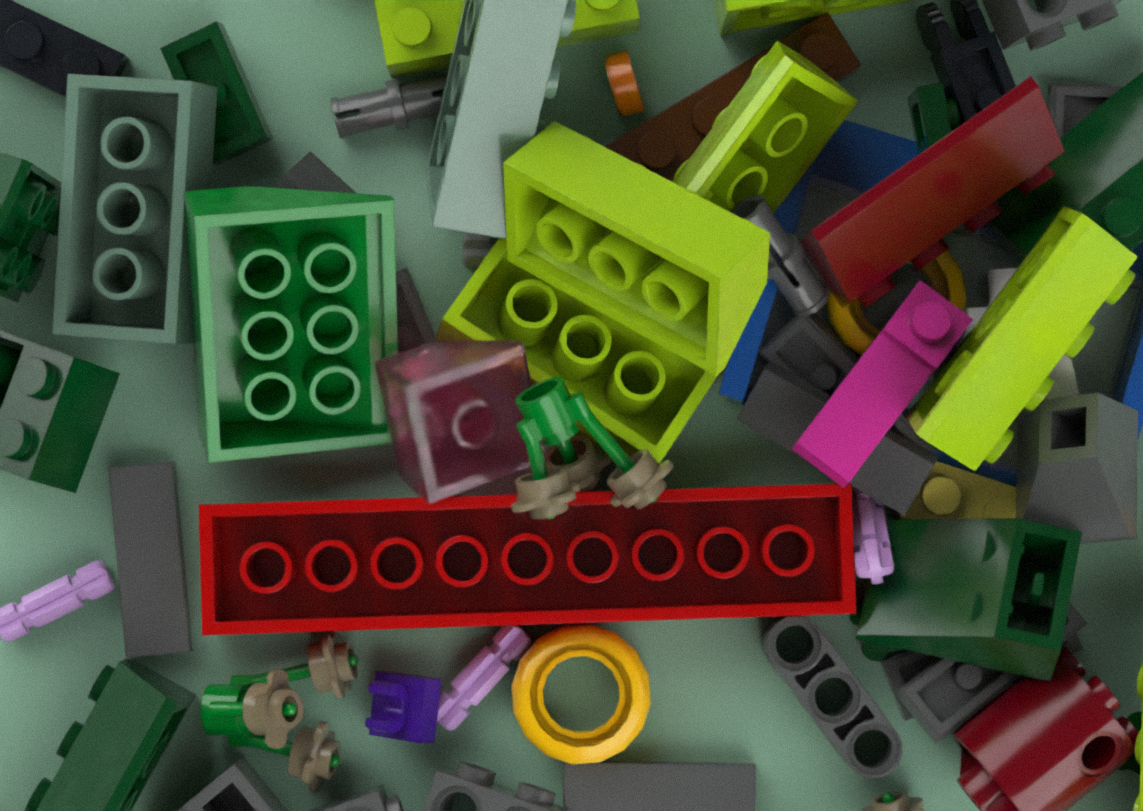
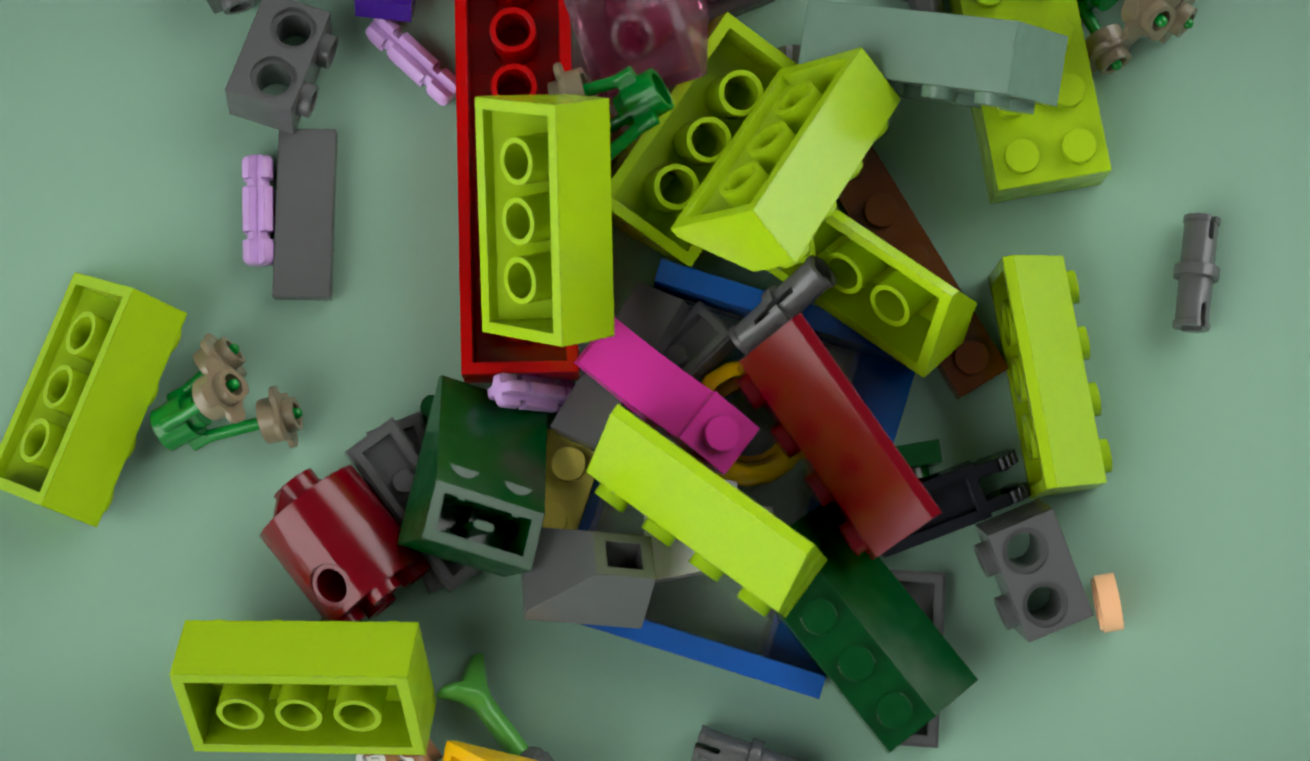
camera: 90 degrees right, 5 degrees down
(586, 745) = (375, 104): yellow wheel -> none
(624, 83) = (941, 185): orange tile -> none
(695, 518) = (545, 217): none -> lime slope
(857, 713) = (360, 366): dark grey beam -> none

